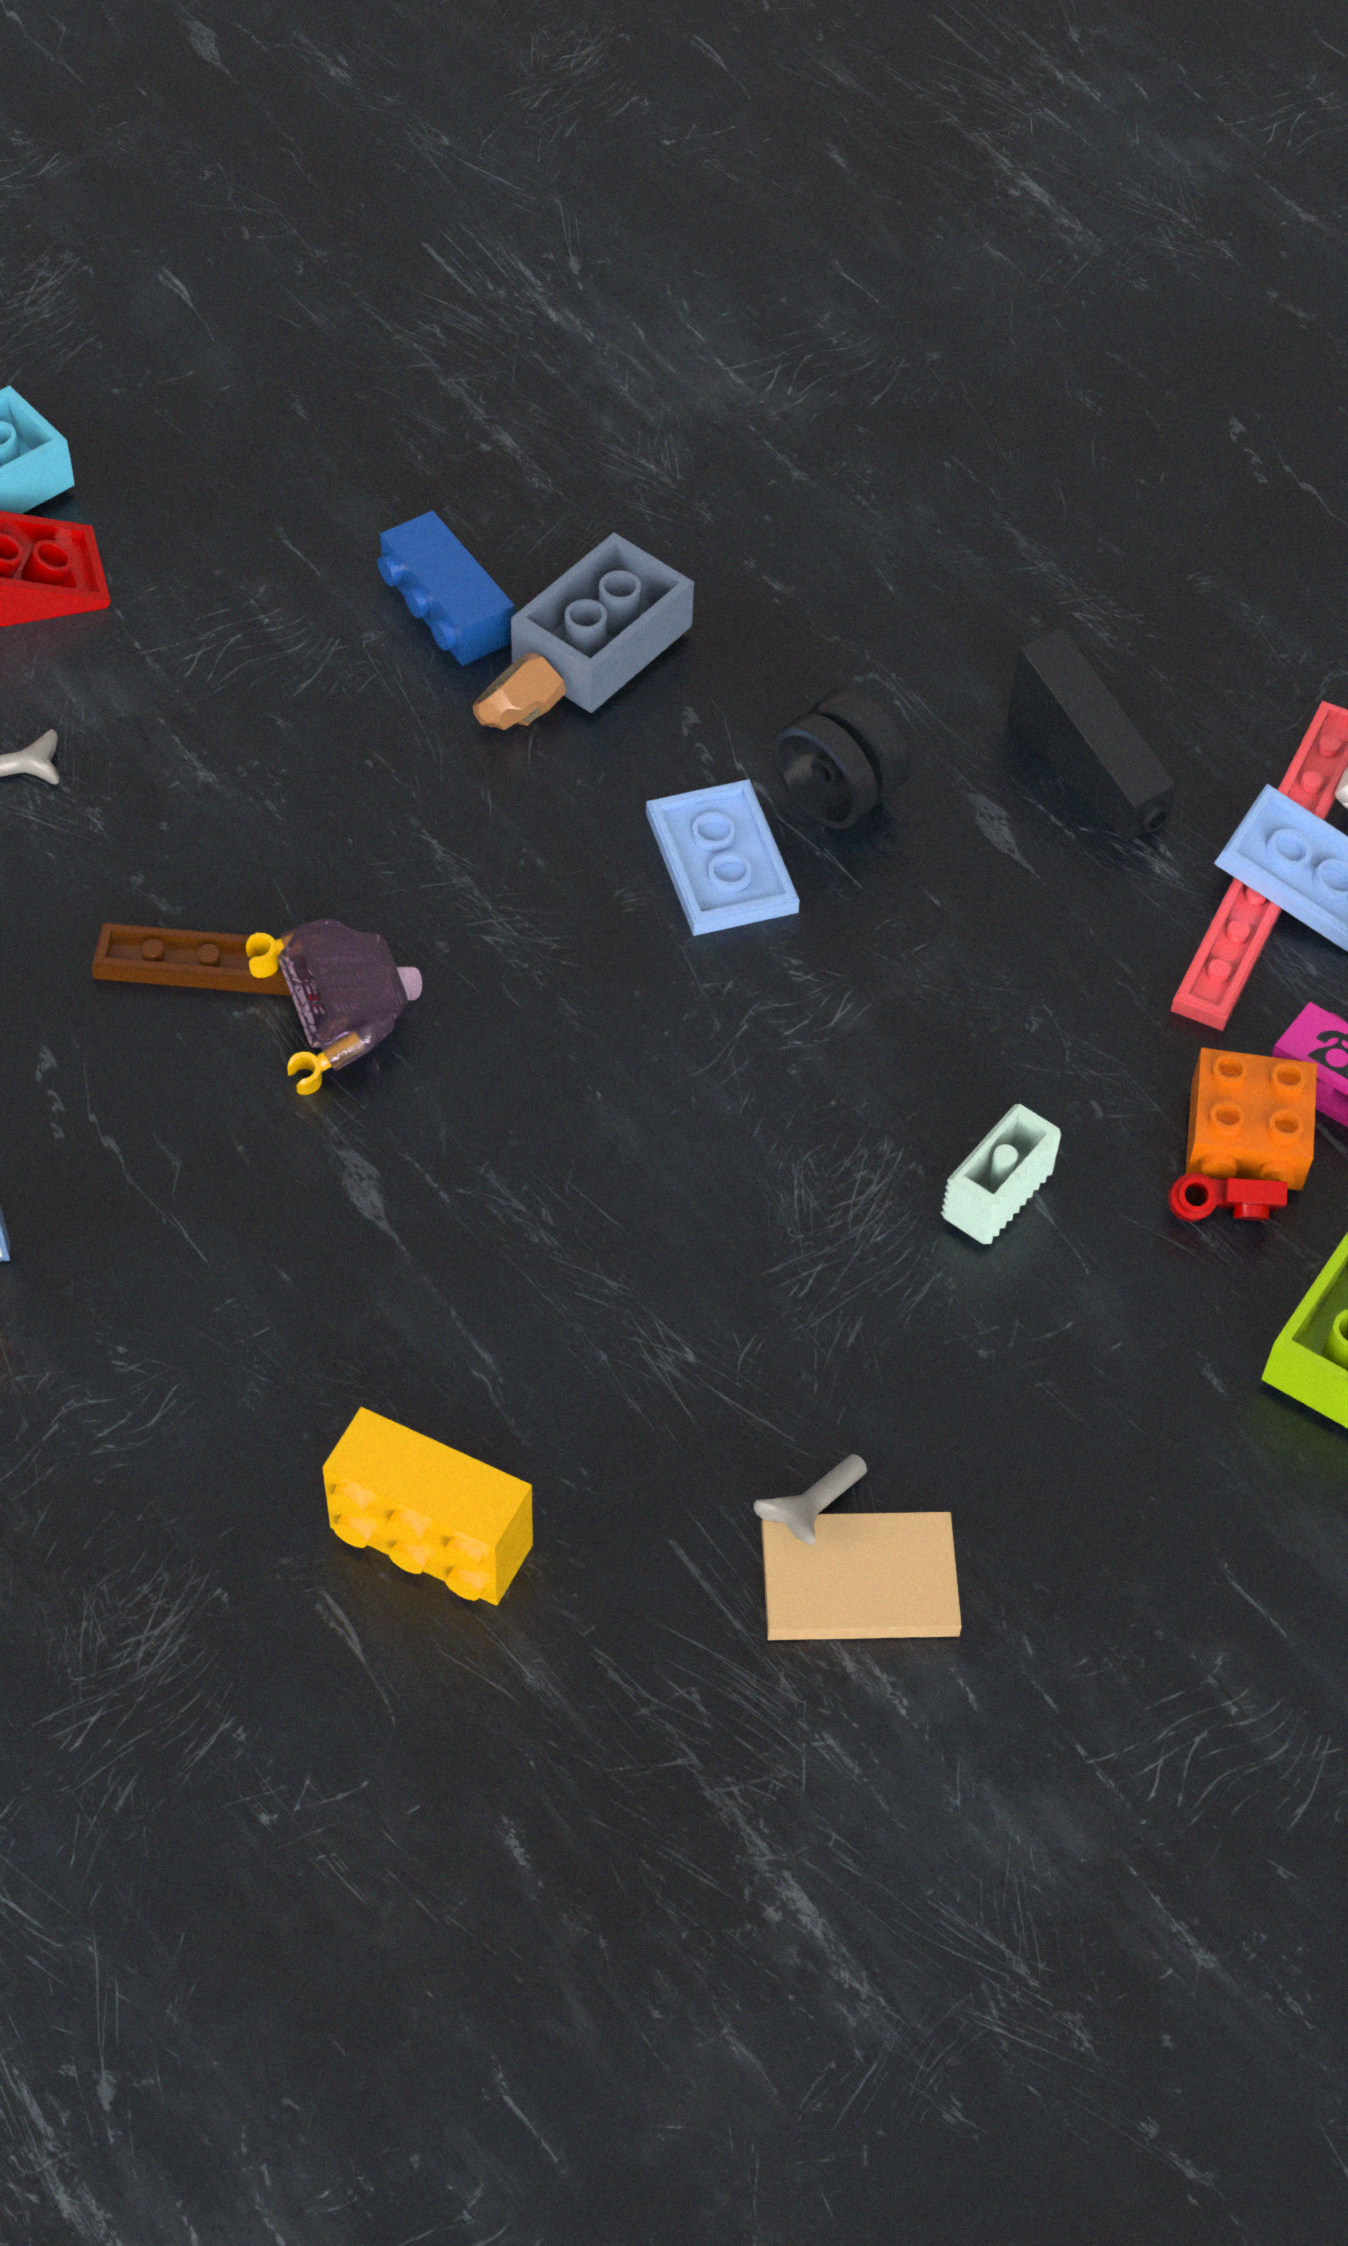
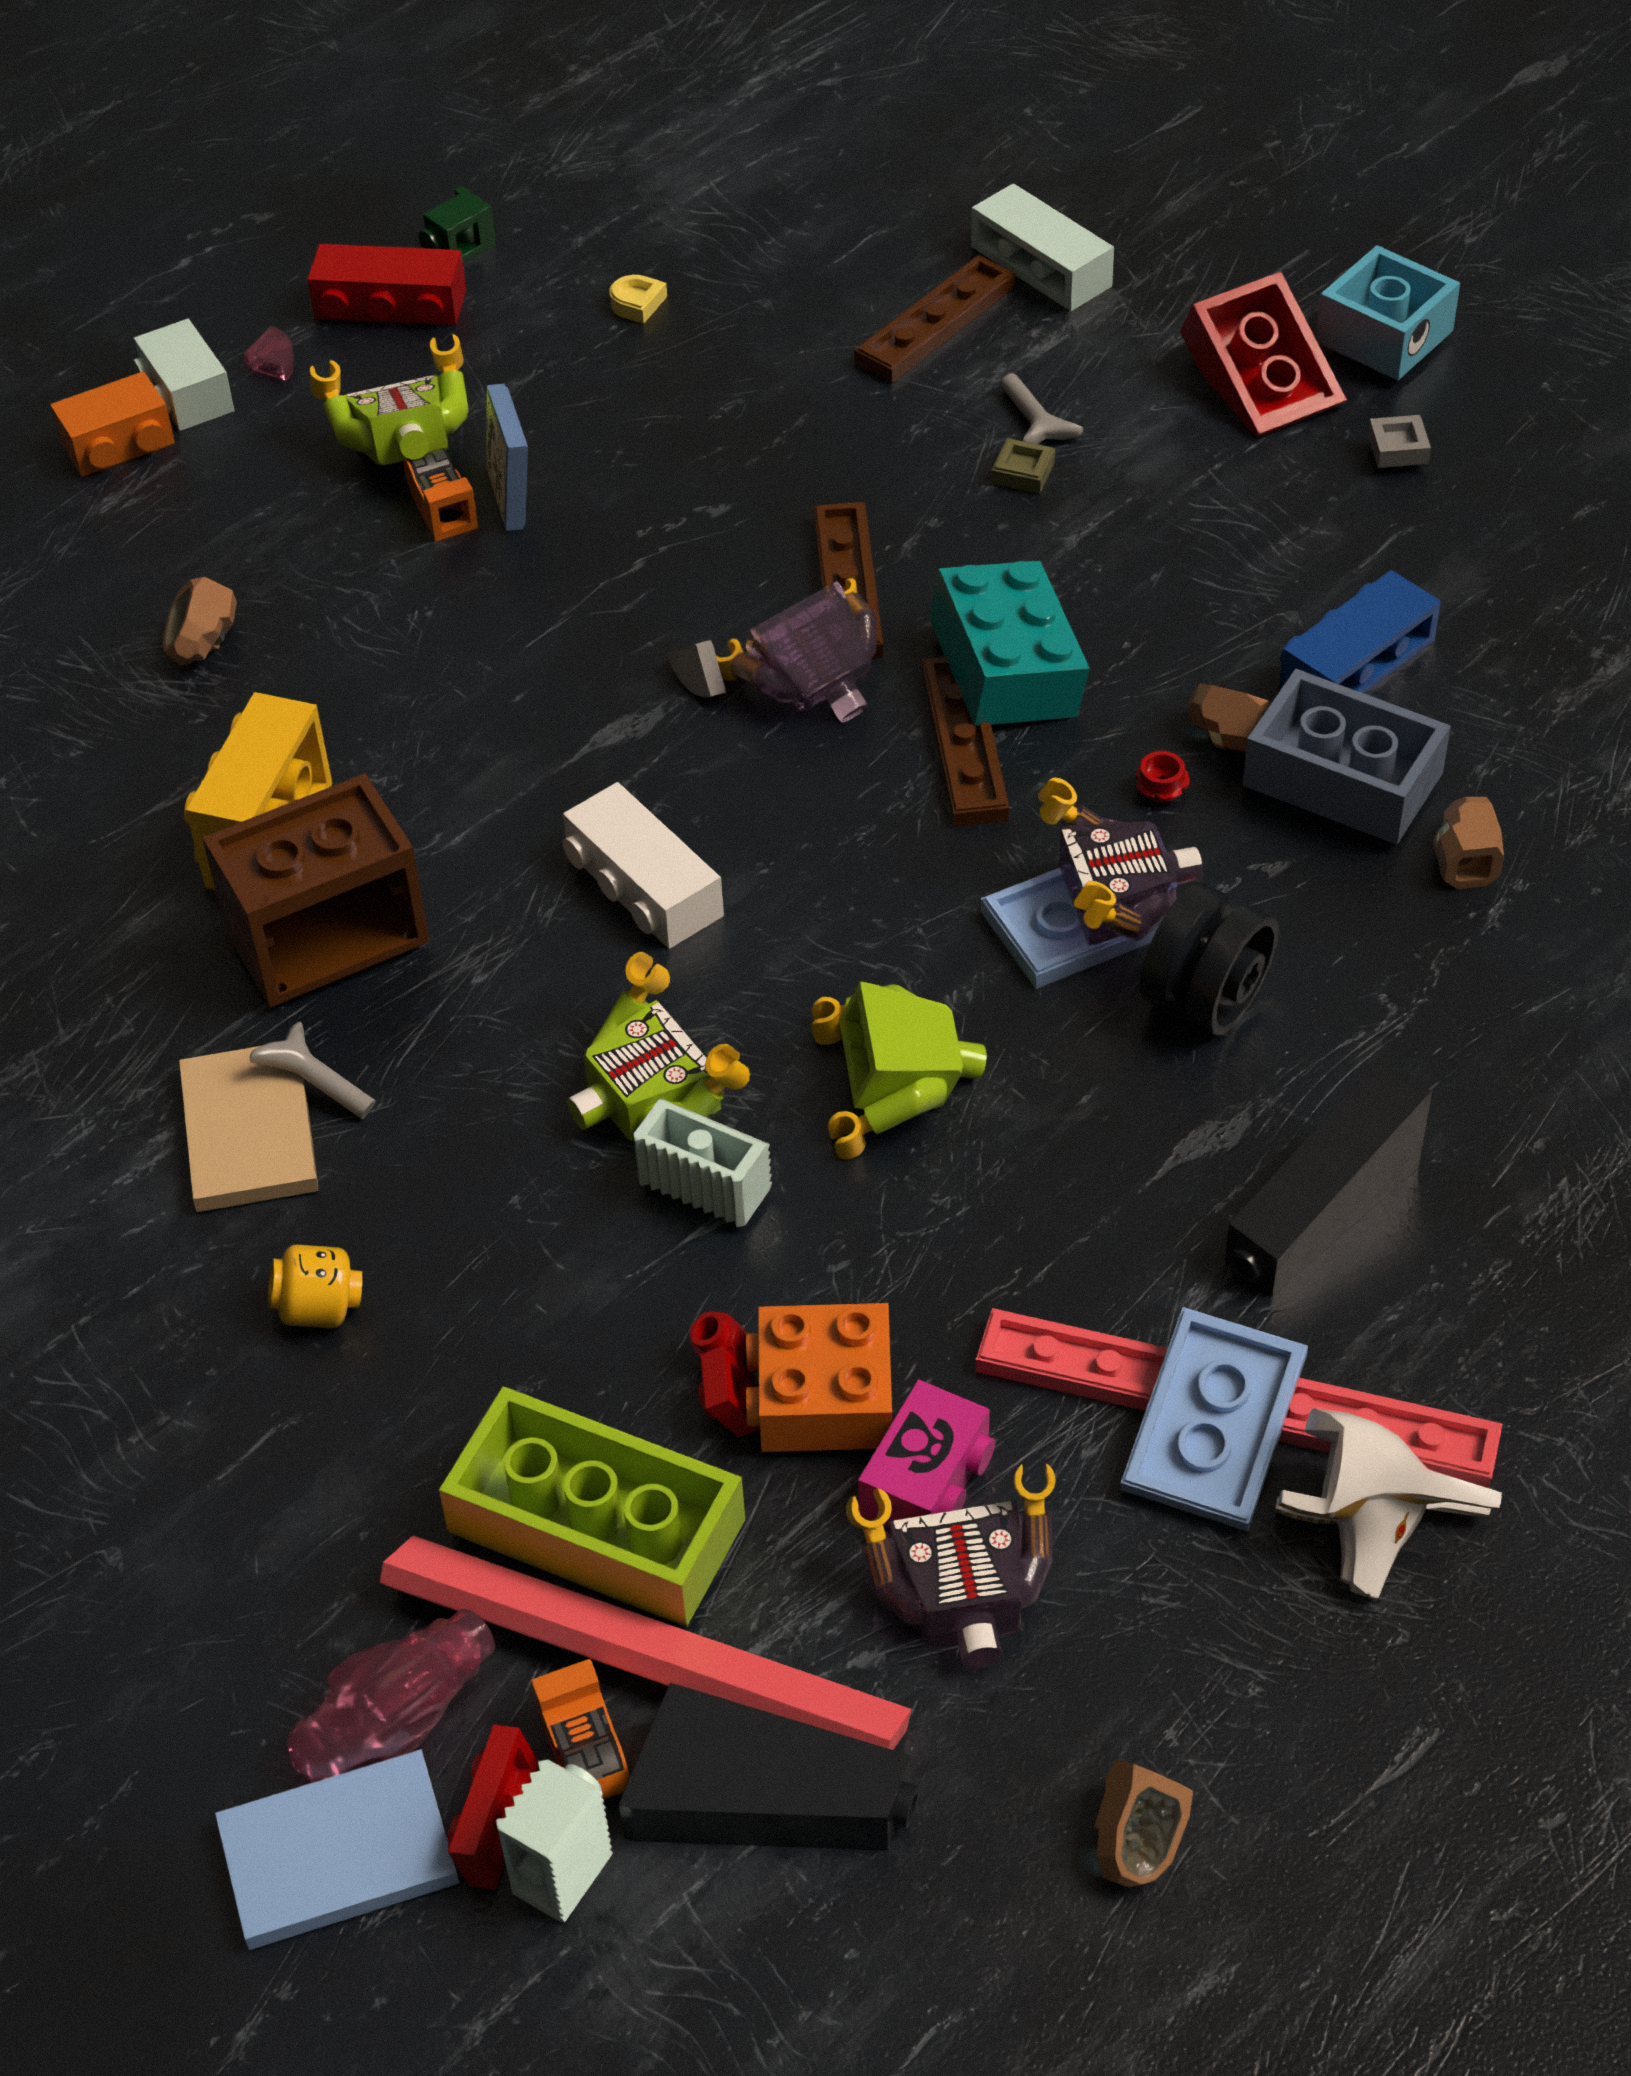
camera: 85 degrees right, 5 degrees down
(86, 788) = (1023, 466): none -> olive tile
(90, 1573) = (198, 620): none -> medium nougat rock
(173, 500) = (1399, 441): none -> light grey plate
(311, 1101) = (698, 669): none -> light grey tile
(375, 833) = (1008, 643): none -> teal brick
(468, 905) = (964, 750): none -> reddish brown tile
(571, 763) = (1162, 776): none -> red plate
(591, 1181) = (642, 865): none -> white brick
(611, 1446) = (317, 889): none -> reddish brown container
(714, 566) = (1469, 844): none -> medium nougat rock
(722, 805) = (1115, 868): none -> torso
(873, 1207) = (649, 1058): none -> torso
(893, 1006) = (897, 1057): none -> lime torso
(1094, 1519) = (313, 1286): none -> yellow head

